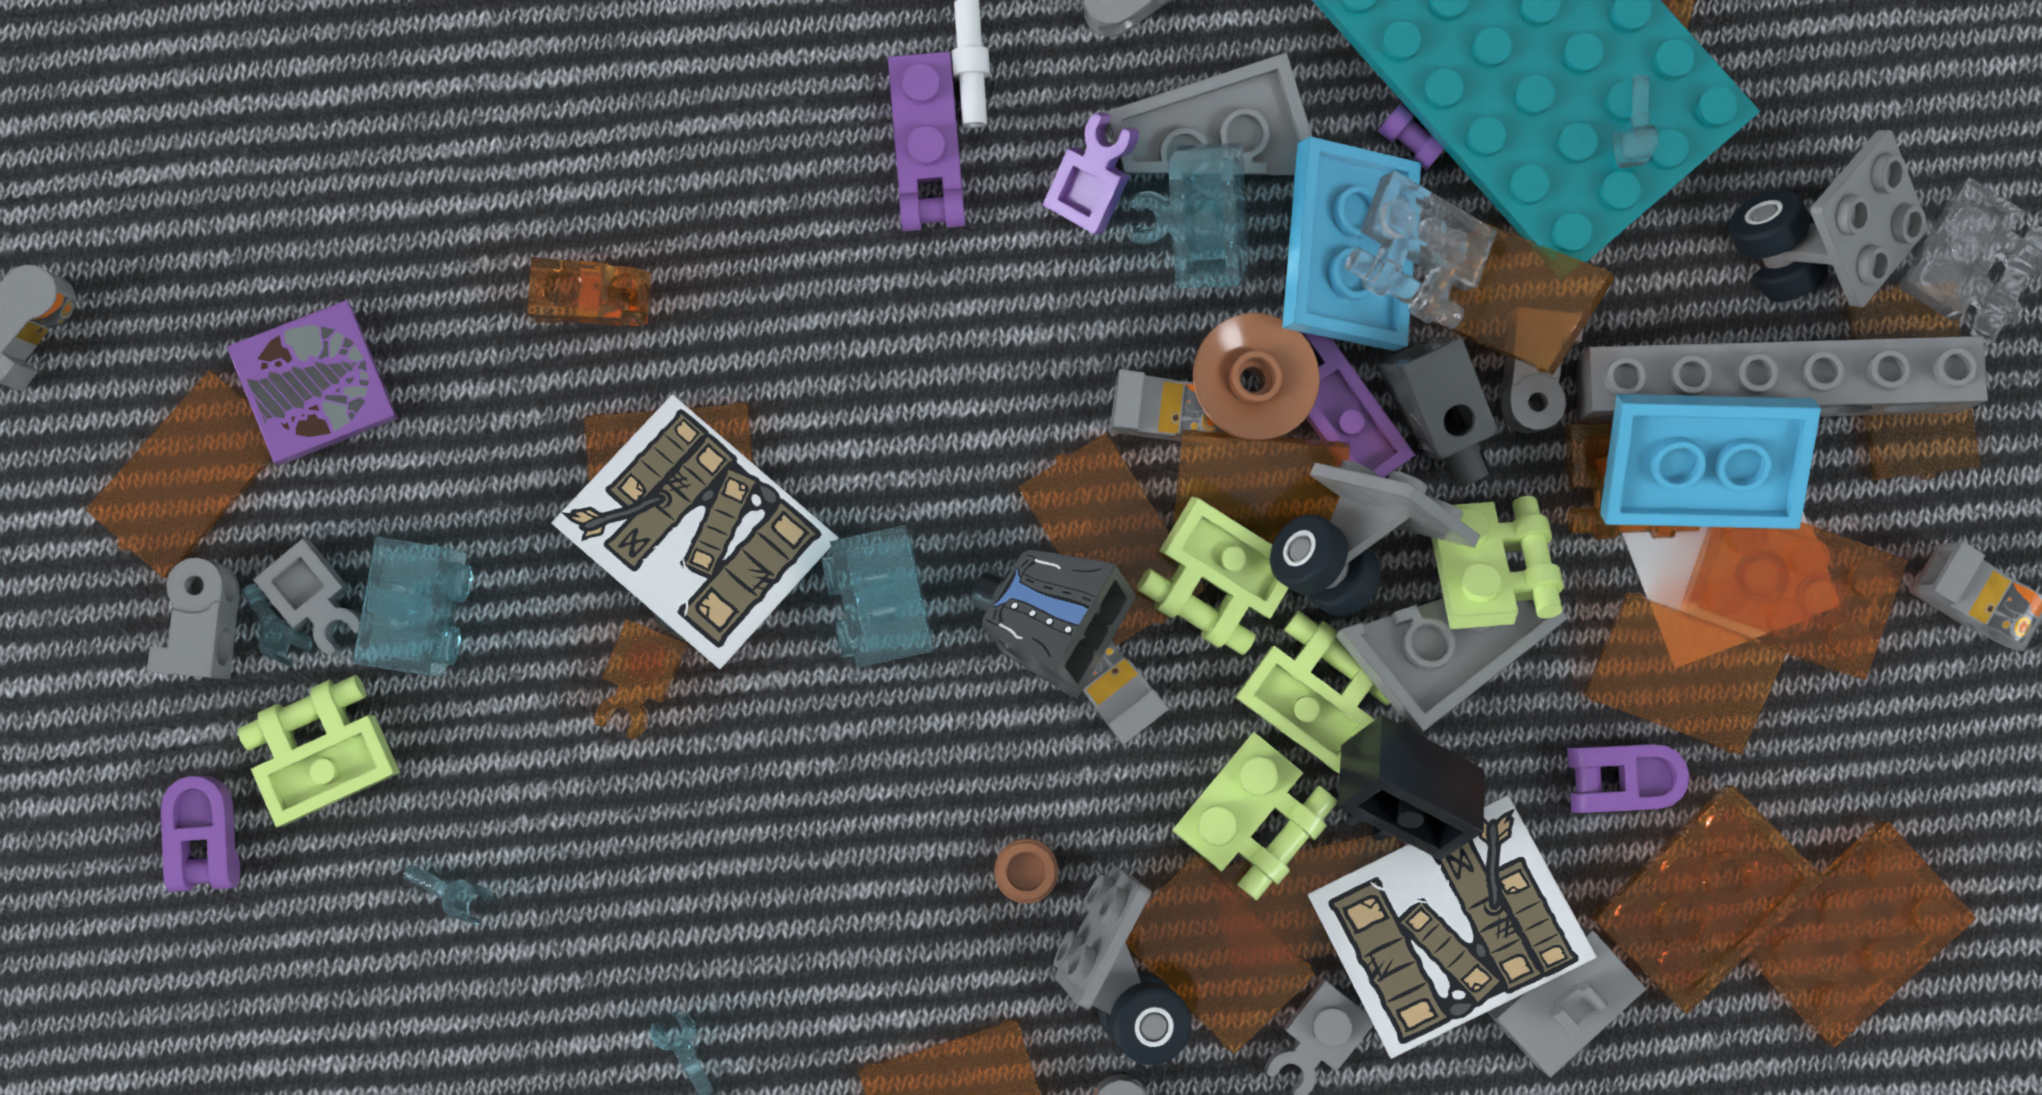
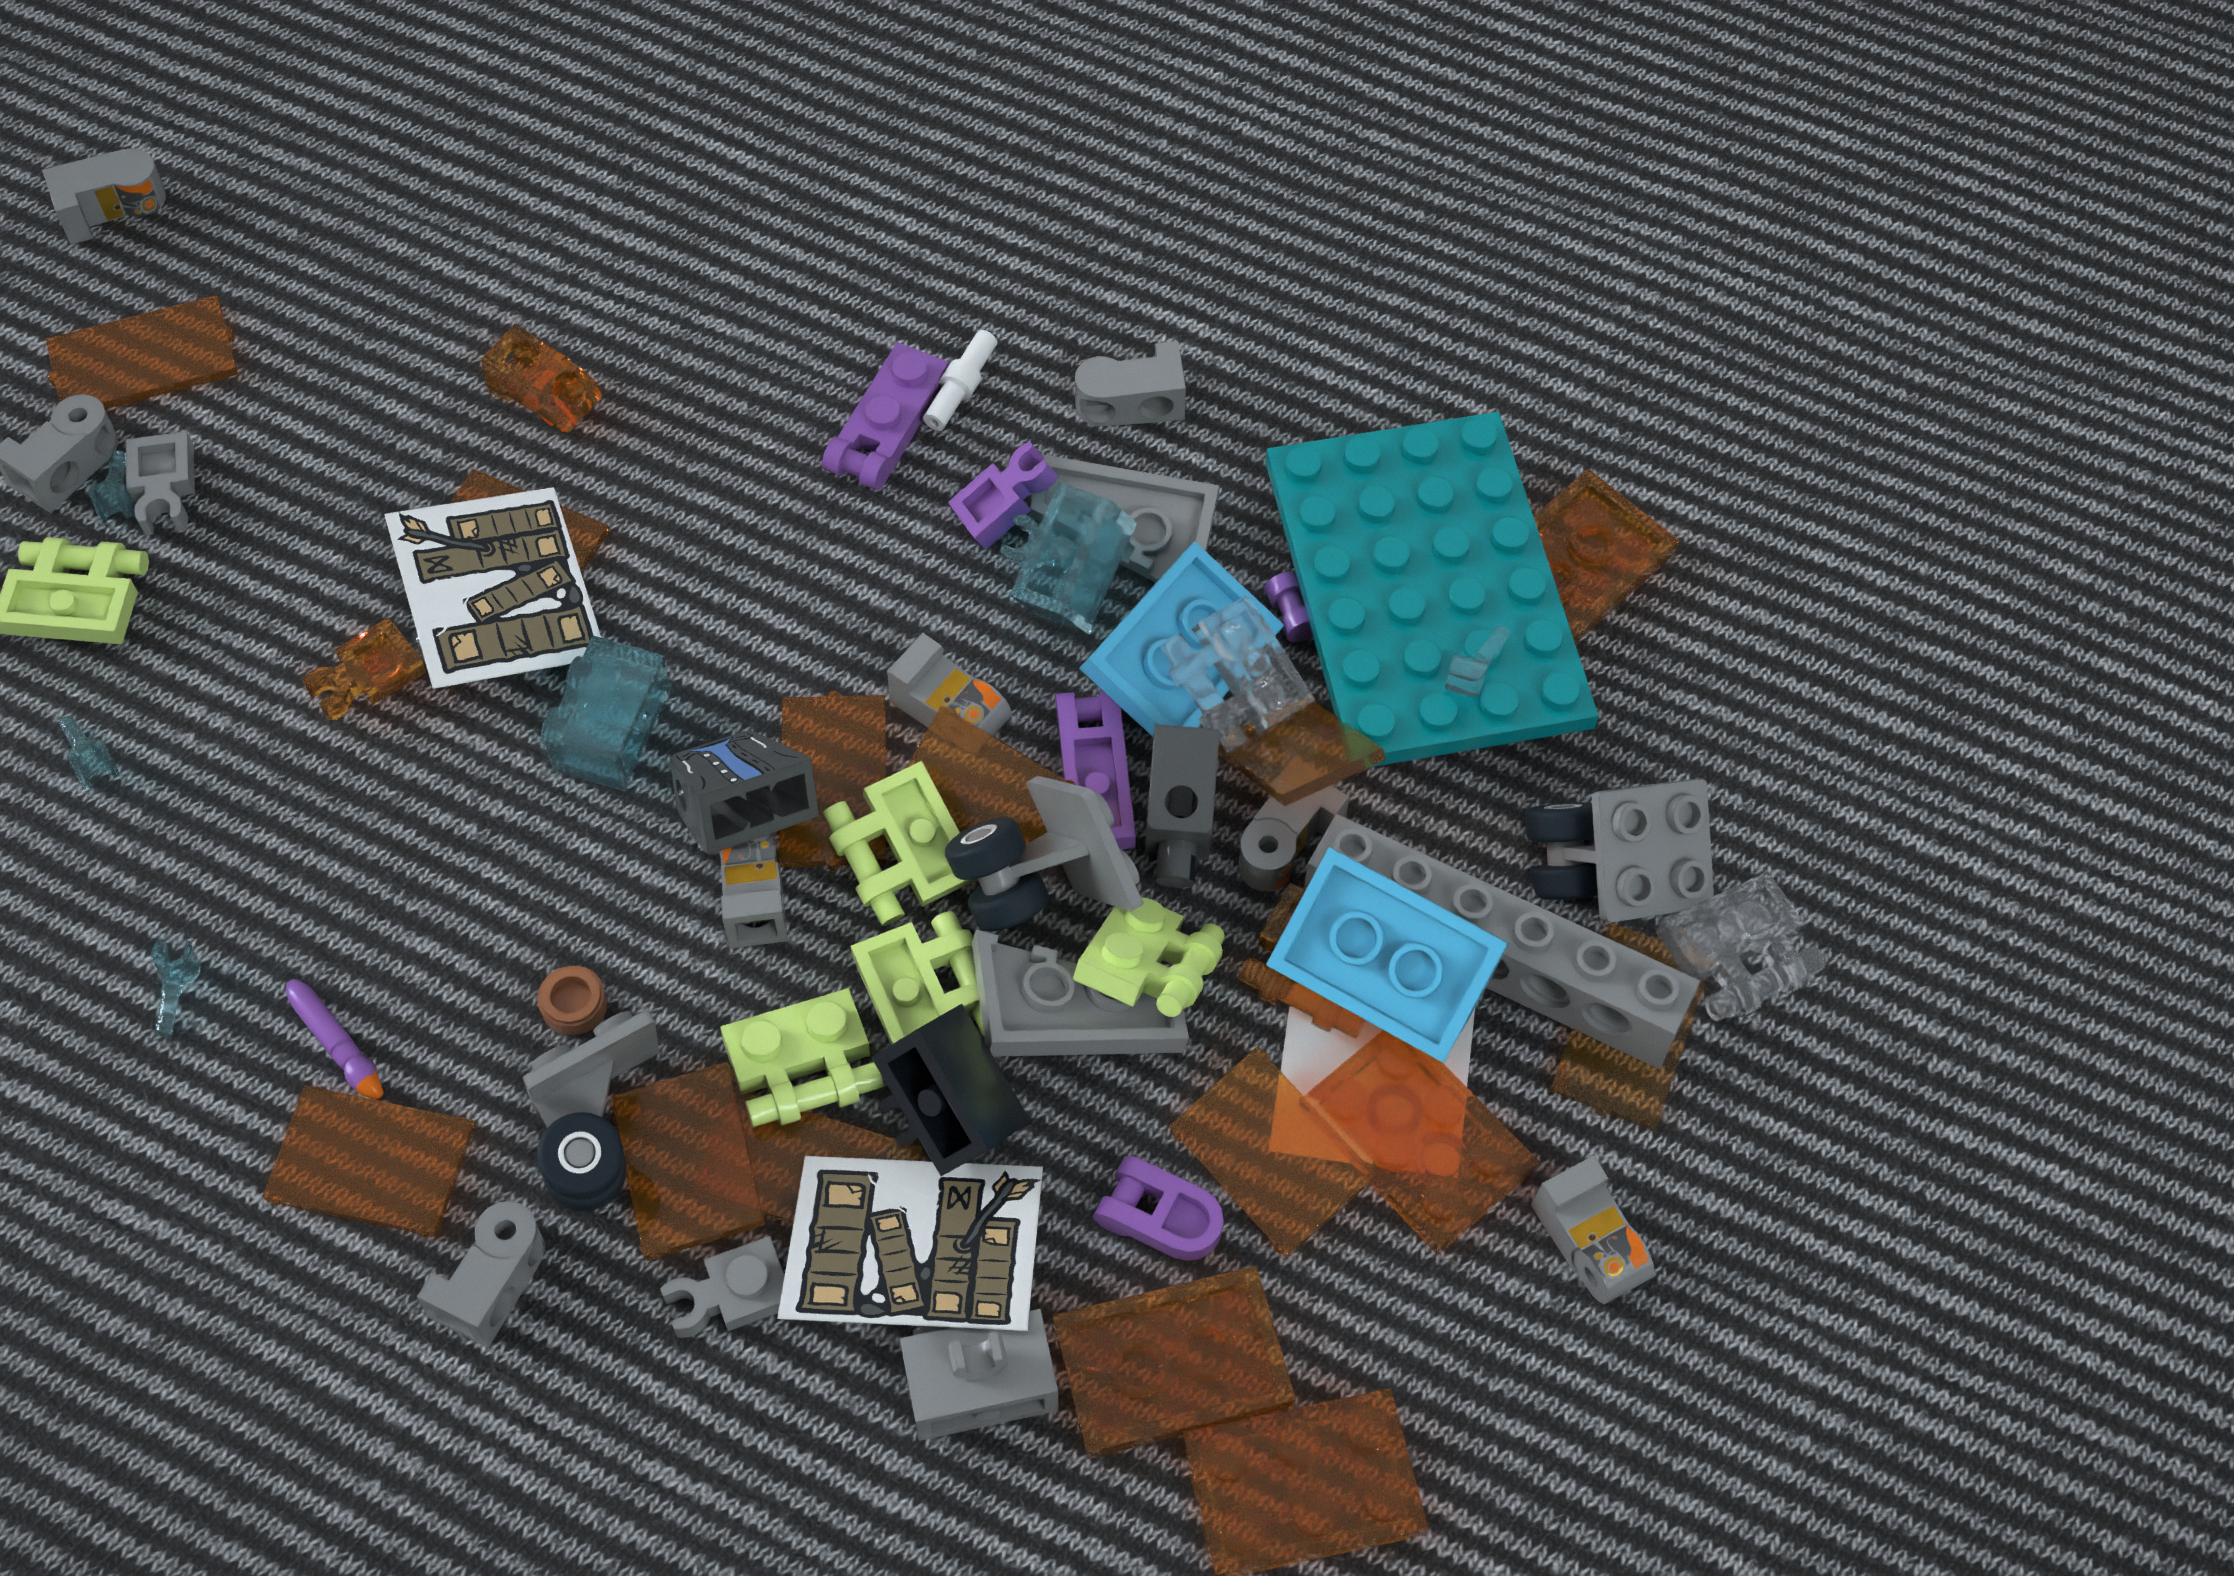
camera: 20 degrees right, 25 degrees down
(312, 382) = (285, 339): tile -> none
(412, 607) = (228, 522): clear light blue brick -> none
(893, 1033) = (358, 1070): none -> medium lavender piece
(1279, 359) = (1035, 674): nougat dish -> none

